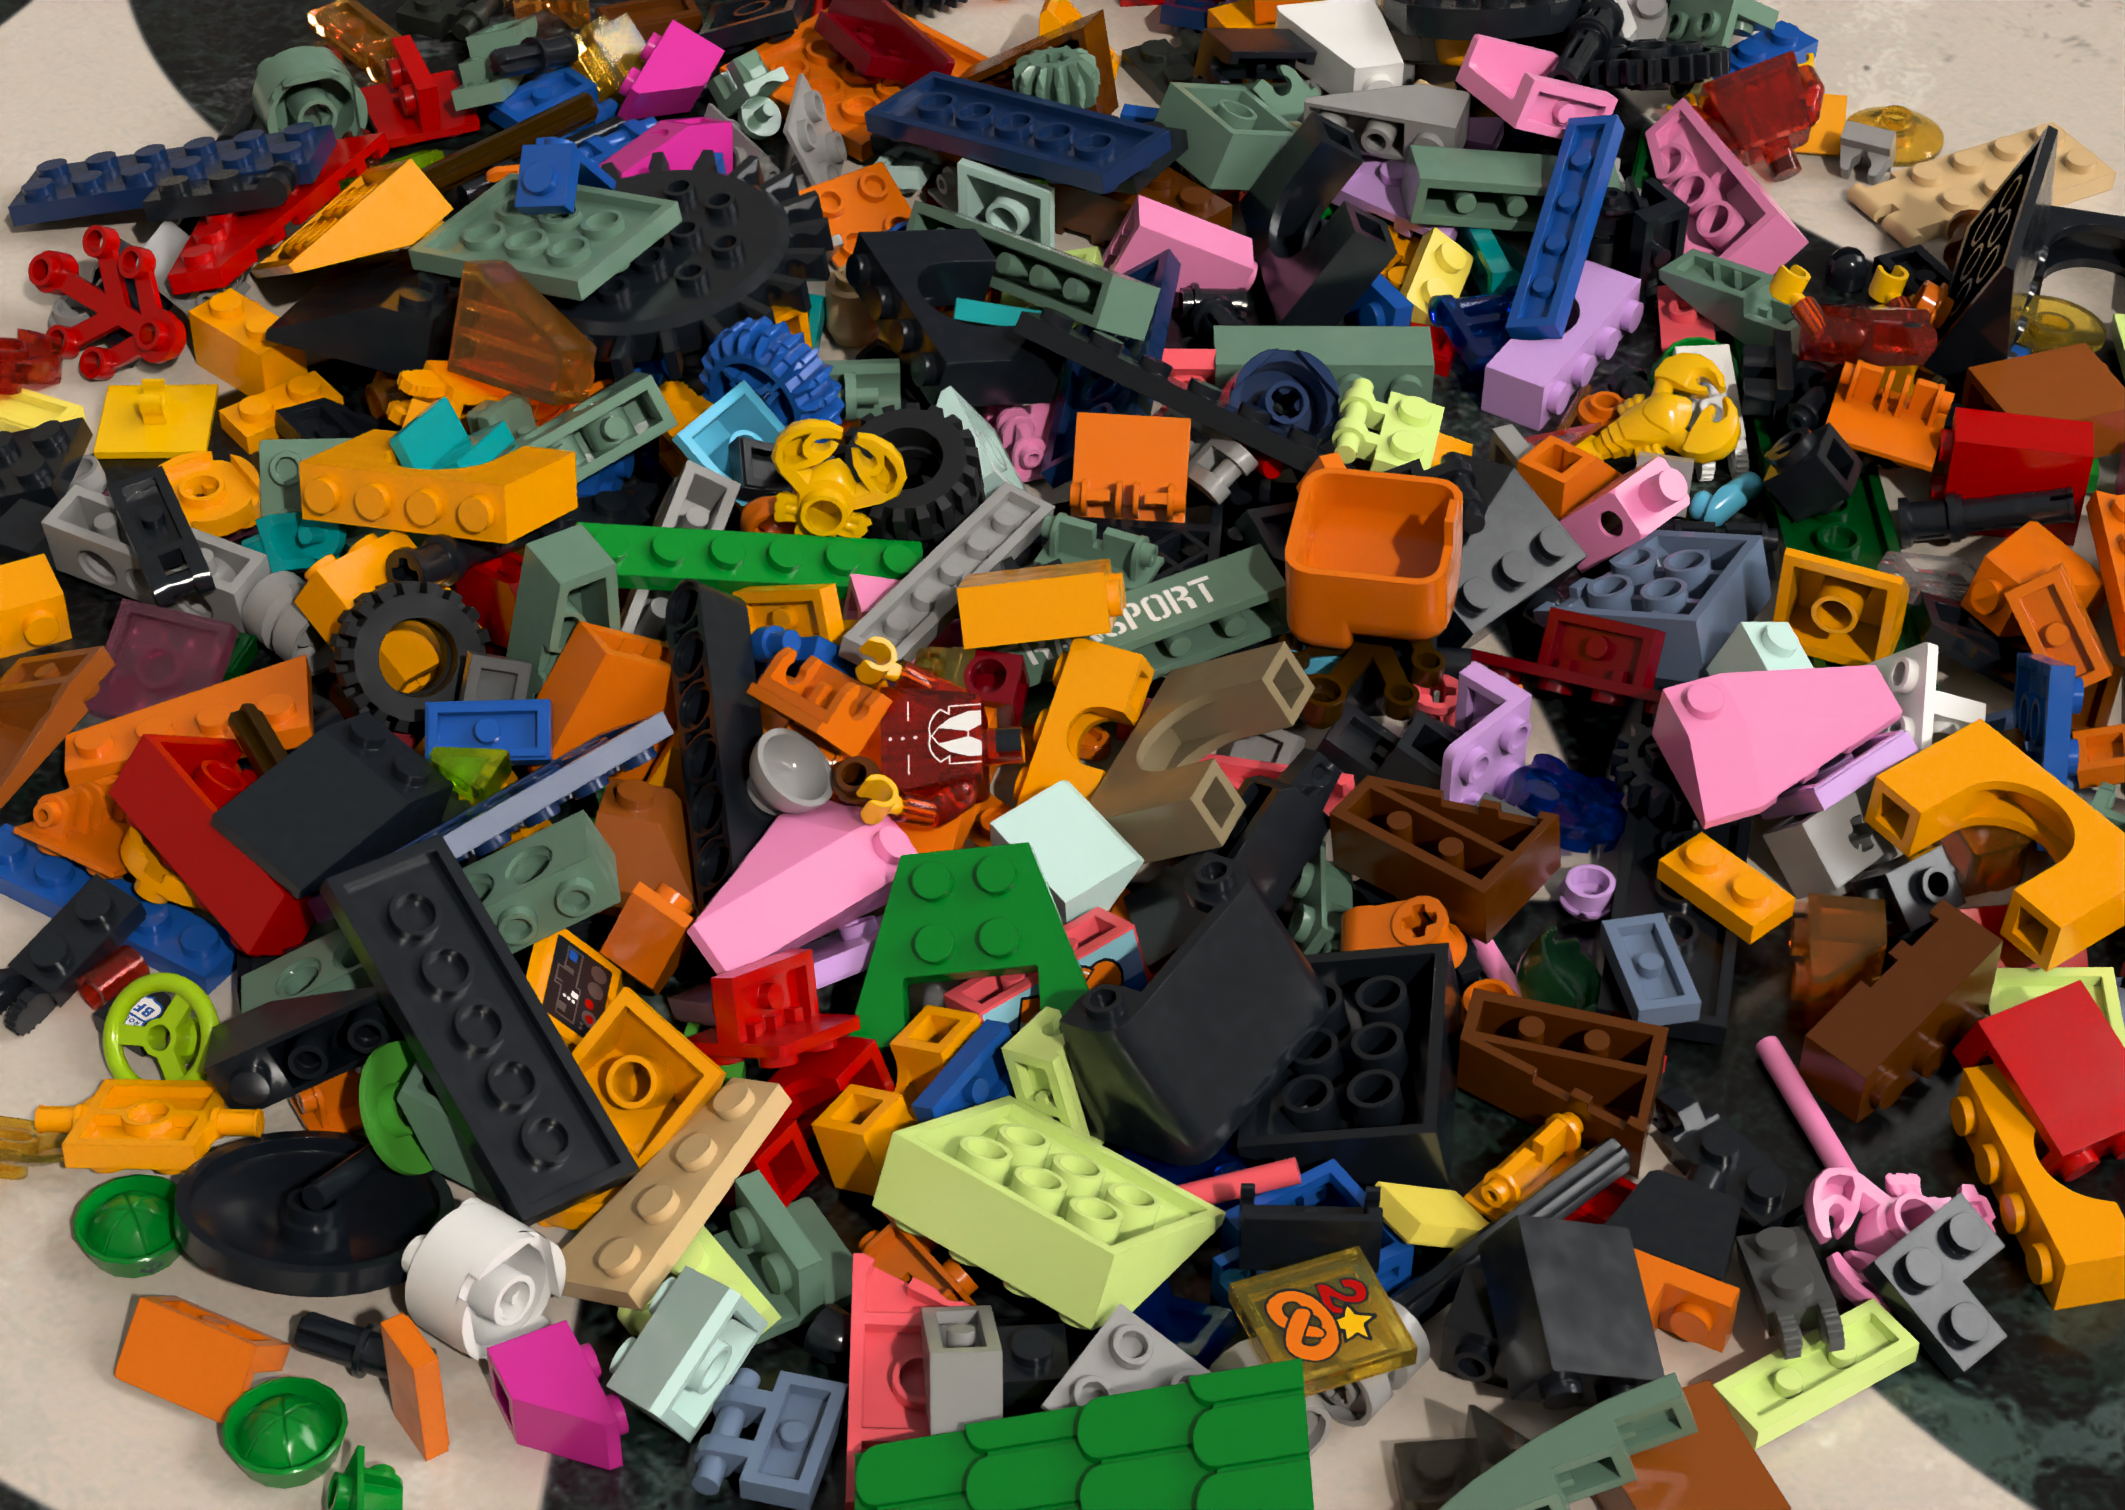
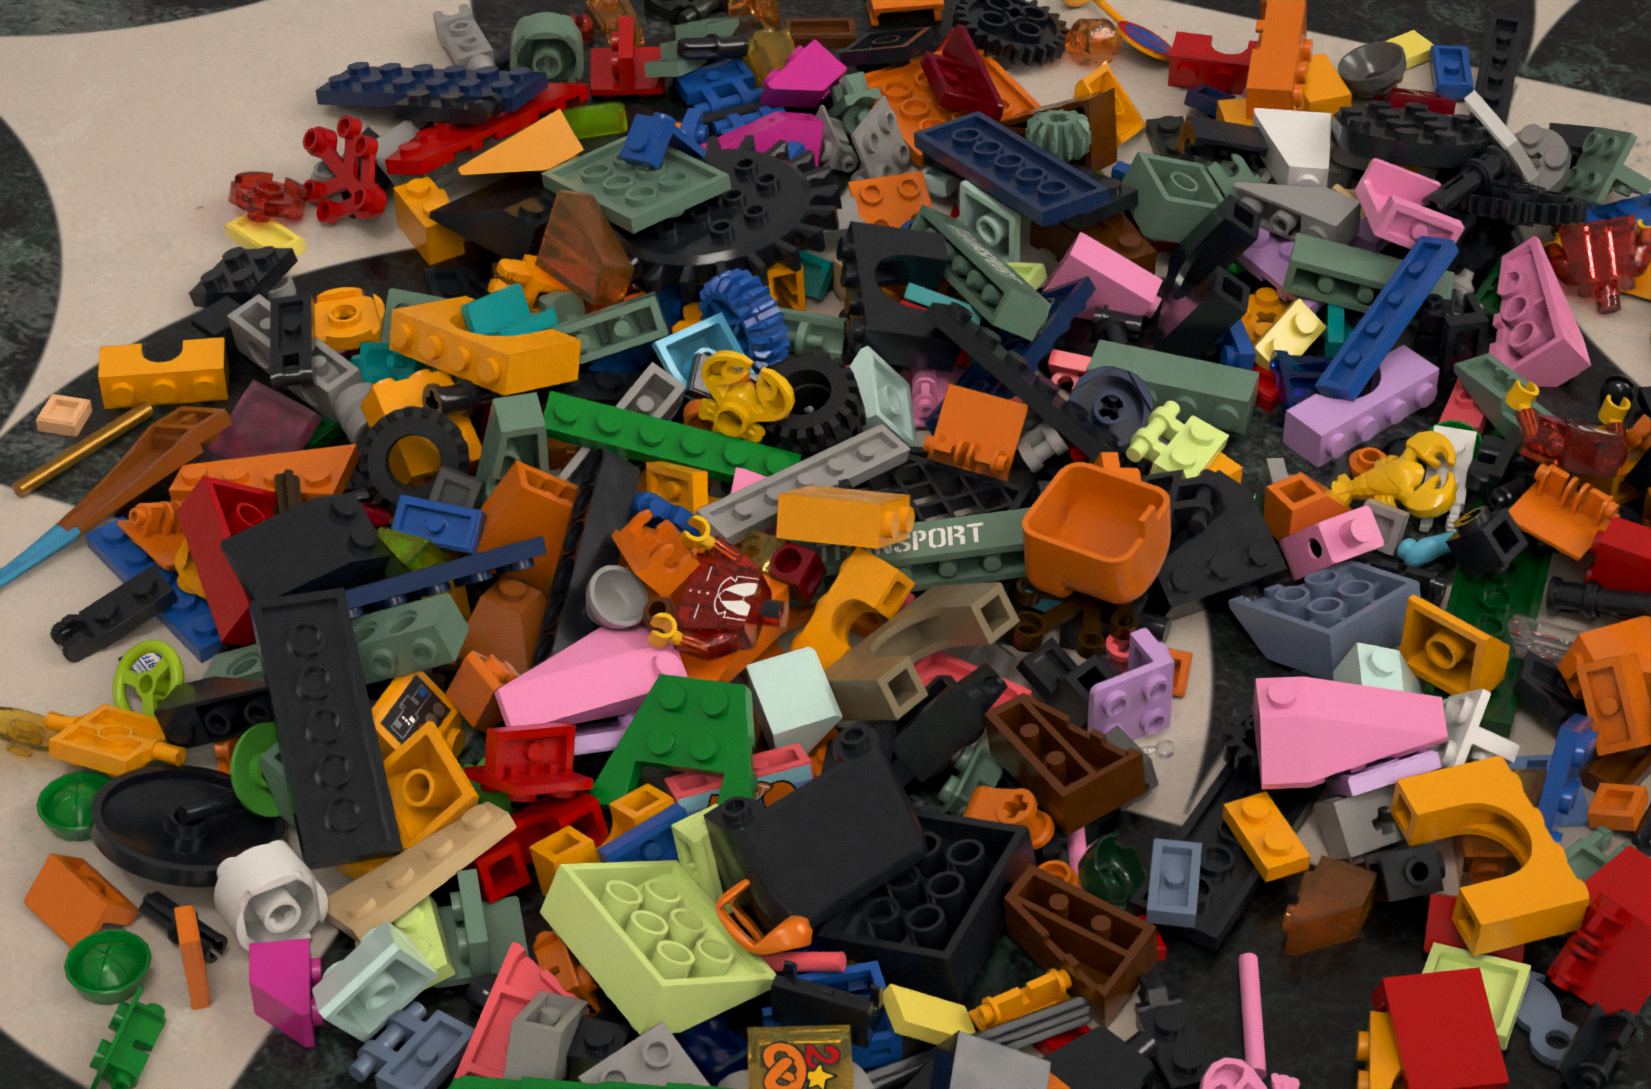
camera: 20 degrees right, 0 degrees up
(111, 976) = (144, 630): clear red hinge -> none
(155, 420) = (351, 259): yellow piece -> none
(179, 105) = (464, 39): none -> light grey plate
(254, 416) = (410, 270): light orange plate -> none
(508, 143) = (675, 107): dark brown axle -> none
(1076, 541) = (928, 494): sand green hinge -> none
(1214, 1155) = (788, 935): none -> orange piece
(1564, 432) = (1331, 474): clear orange piece -> none
(1586, 806) = (1169, 734): clear blue plate -> none
(1588, 892) = (1169, 815): lavender plate -> none
(1590, 653) = (1249, 641): dark red bracket -> none
(1907, 1020) = (1340, 969): reddish brown wedge -> none

